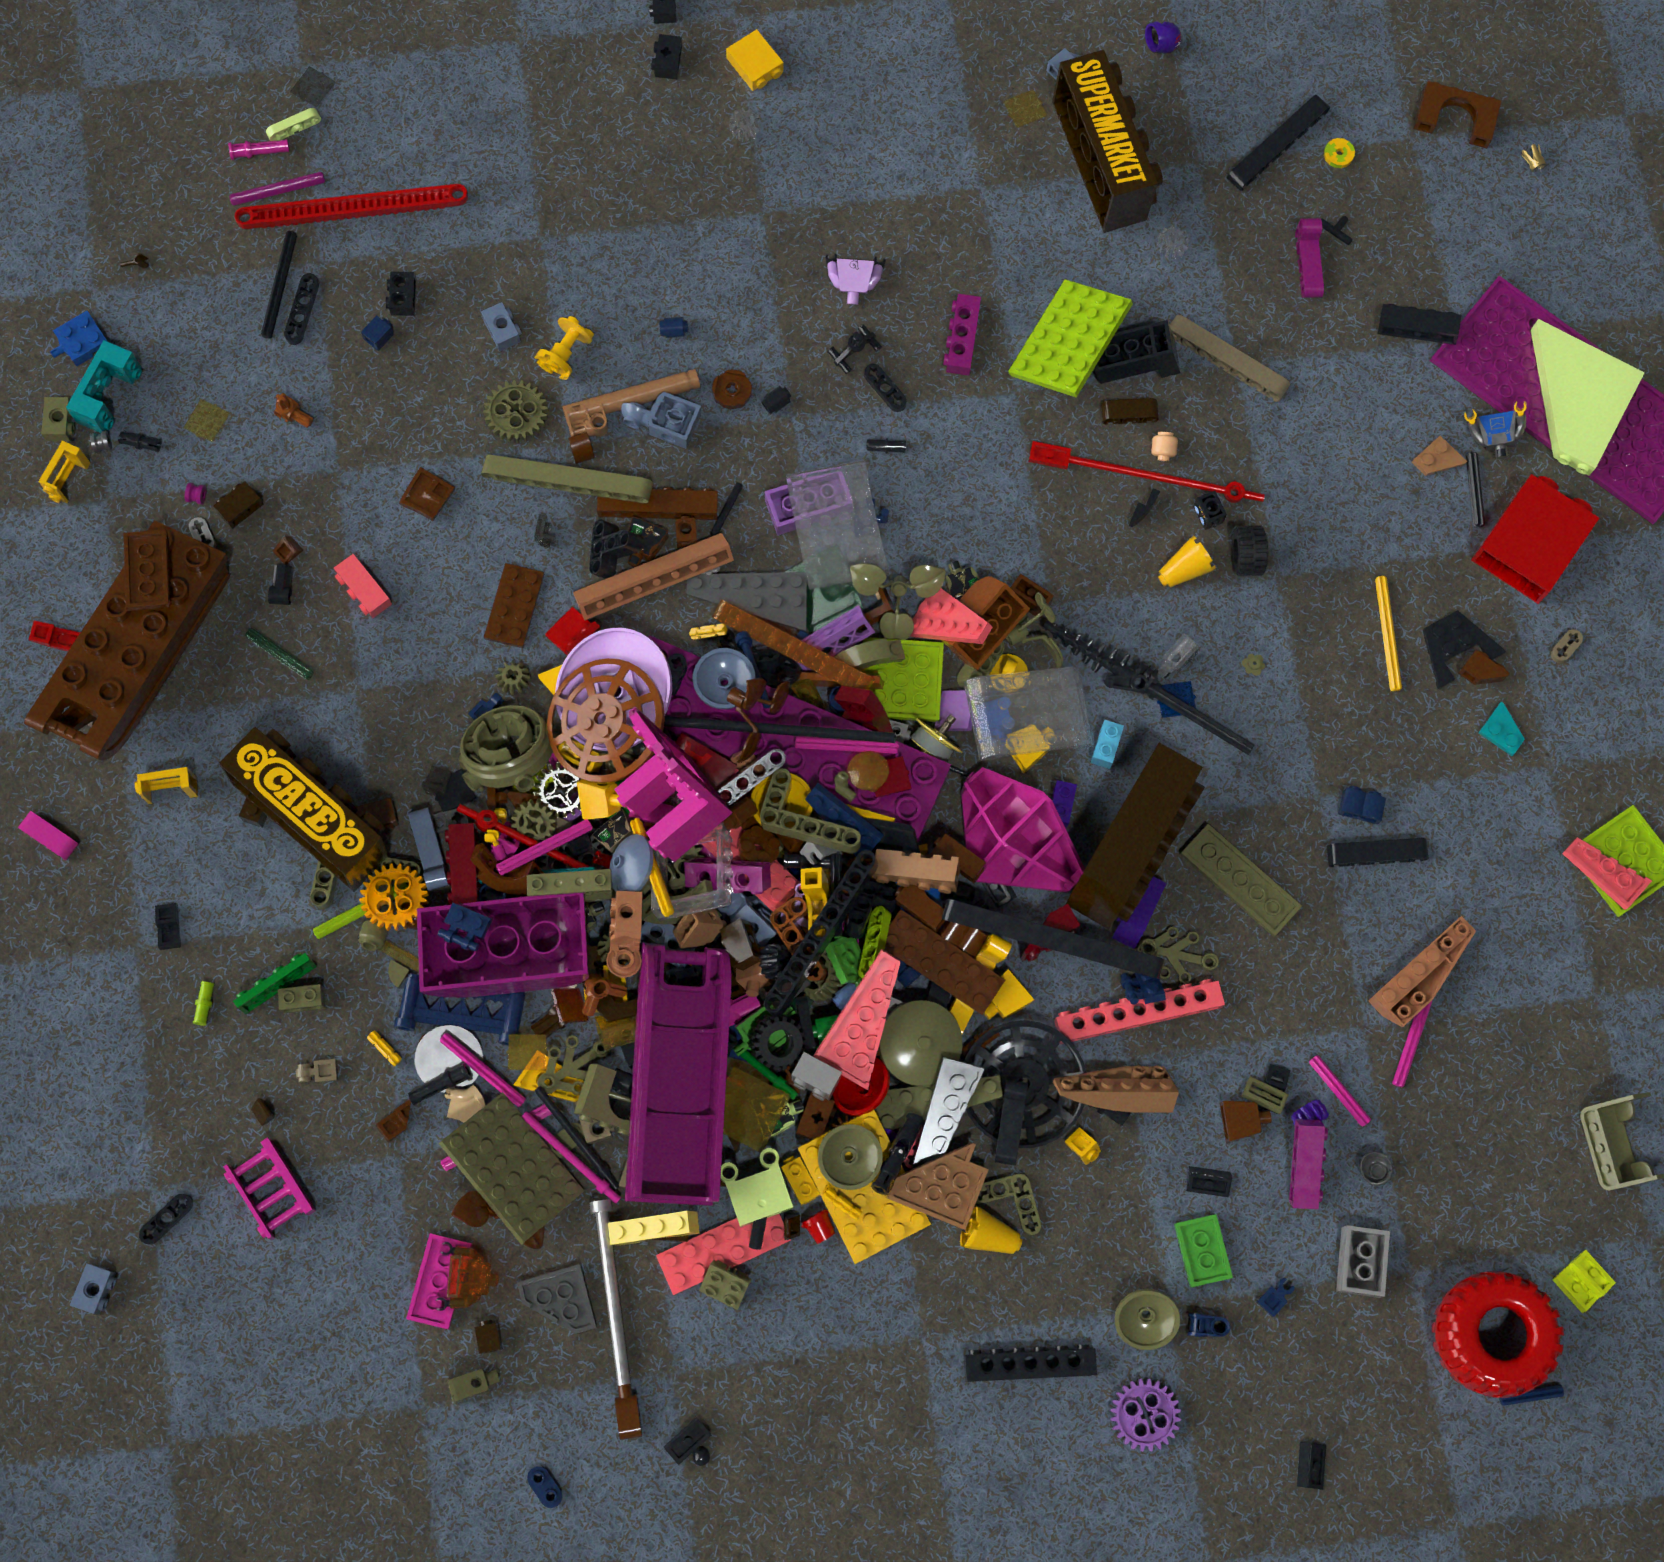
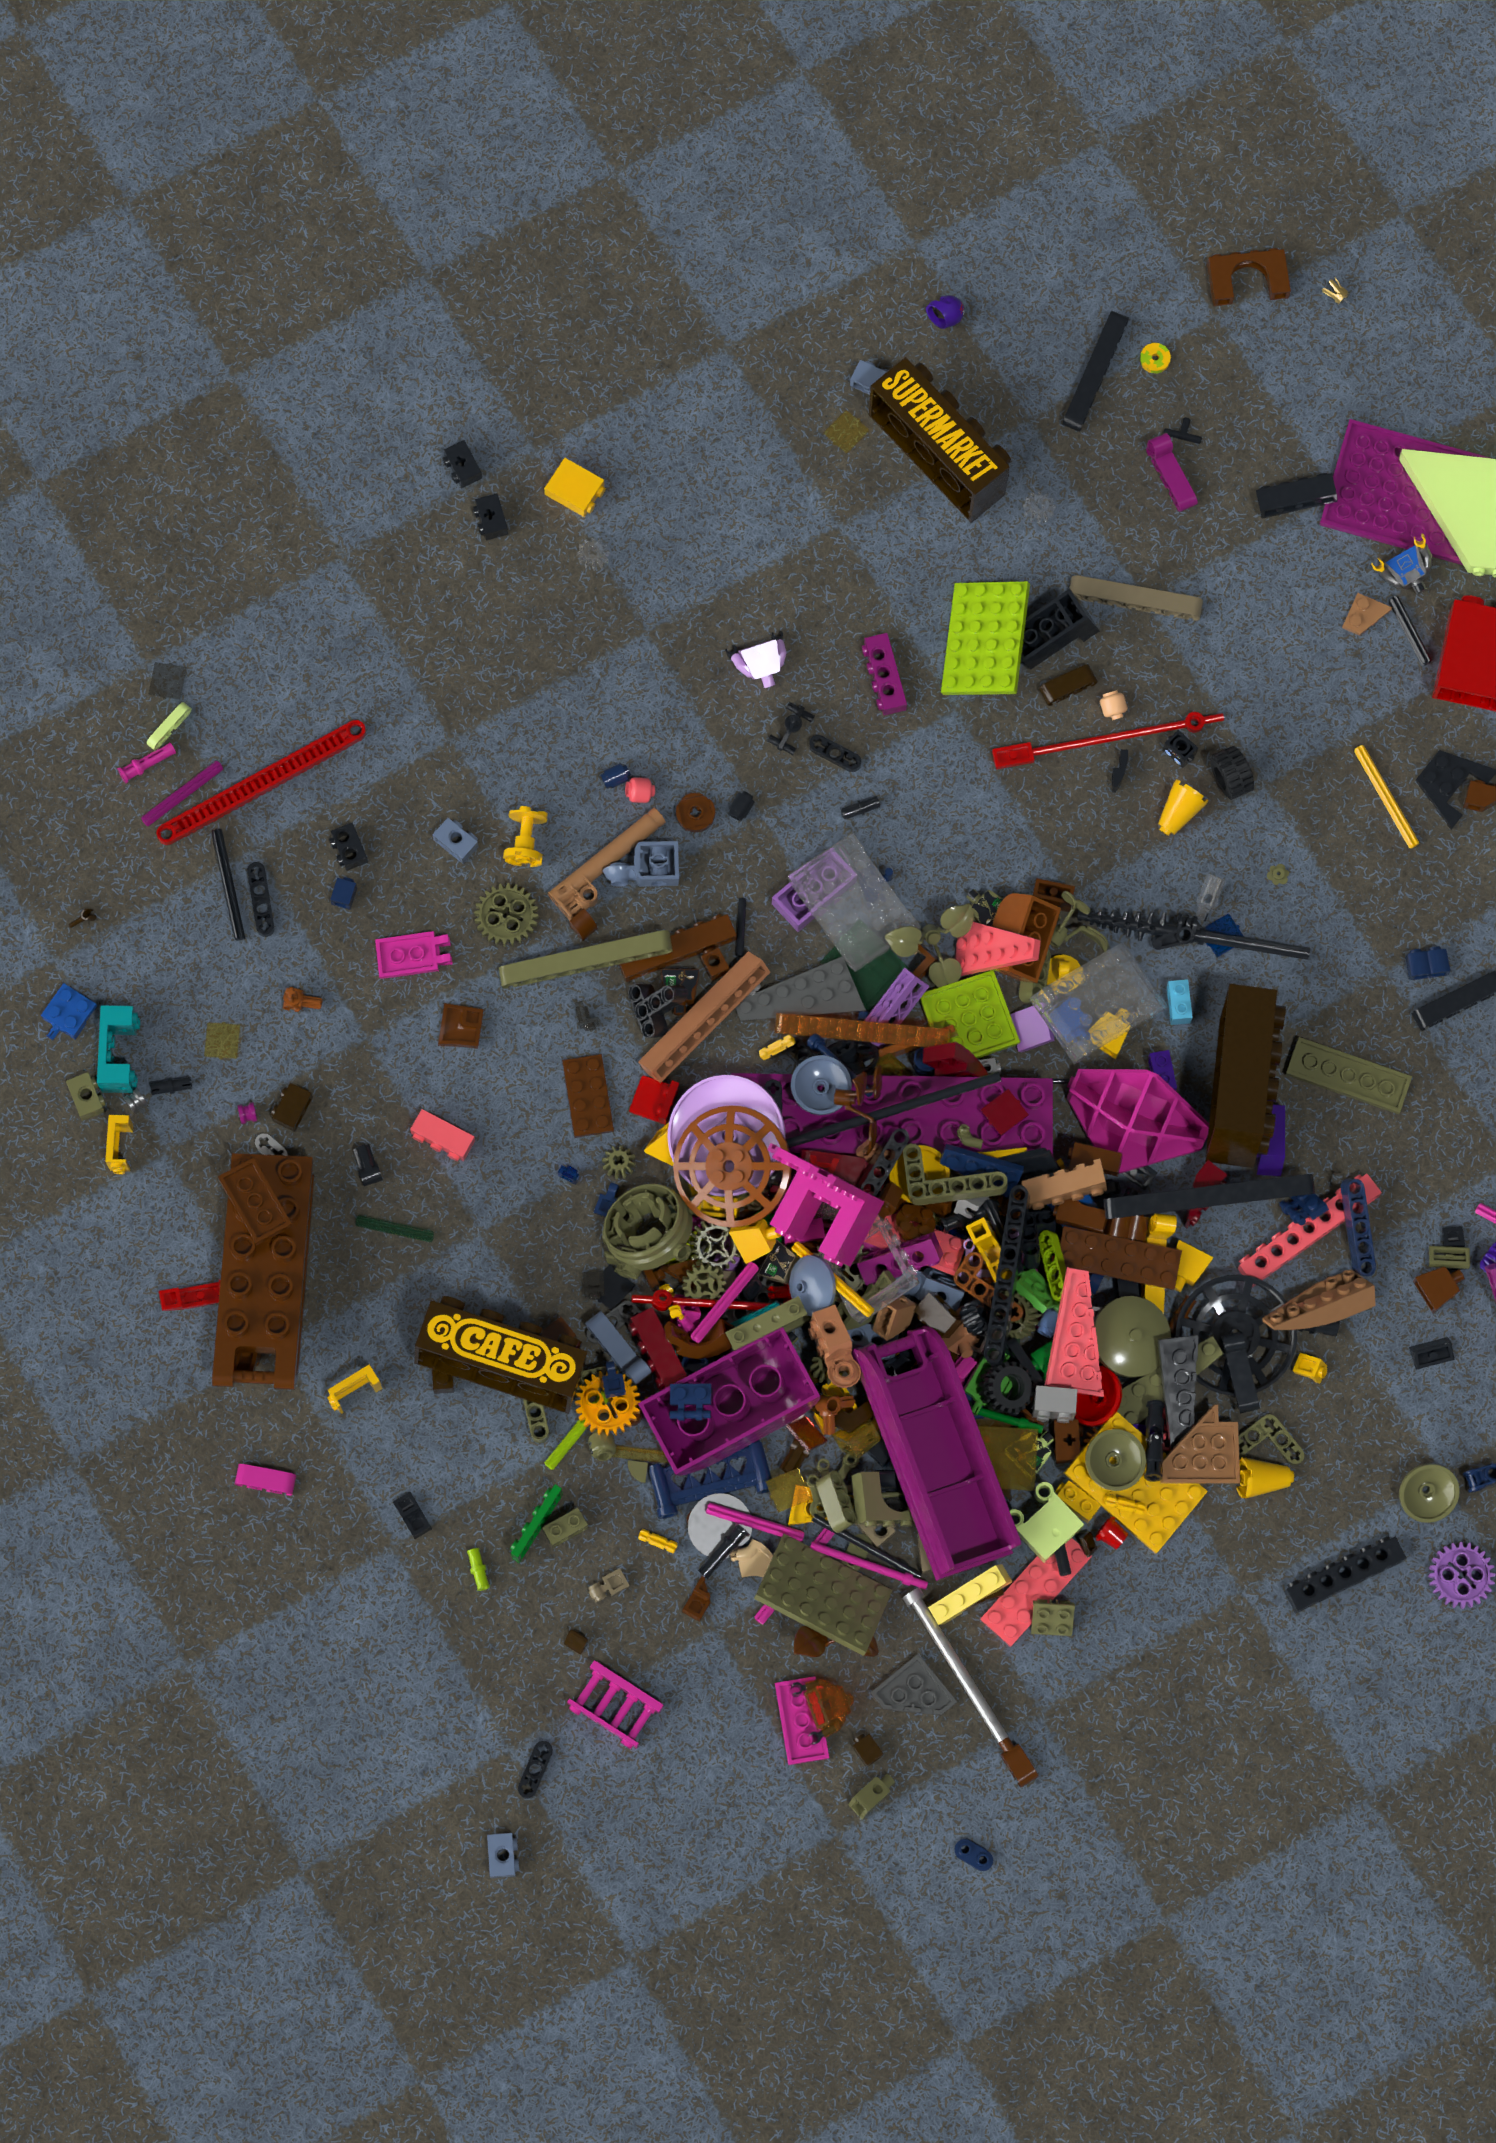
camera: 20 degrees left, 0 degrees up
(287, 549) = (355, 1130): reddish brown slope -> none
(405, 879) = (614, 1382): none -> dark blue plate
(413, 412) = (411, 954): none -> dark pink tile
(462, 669) = (569, 1174): none -> clear blue plate
(564, 1082) = (836, 1501): none -> olive beam
(688, 1443) = (1080, 1765): black plate -> none
(689, 348) = (639, 790): none -> coral head
(845, 745) = (952, 1101): dark pink axle -> none
(868, 771) = (984, 1114): clear yellow dish -> none
(872, 654) = (935, 1007): olive arch -> none
(934, 741) = (1025, 1063): piece -> none
(1174, 953) = (1317, 1165): olive plant -> none
(1186, 1018) = (1352, 1218): none -> dark blue beam
(1203, 1250) = (1452, 1414): bright green plate -> none

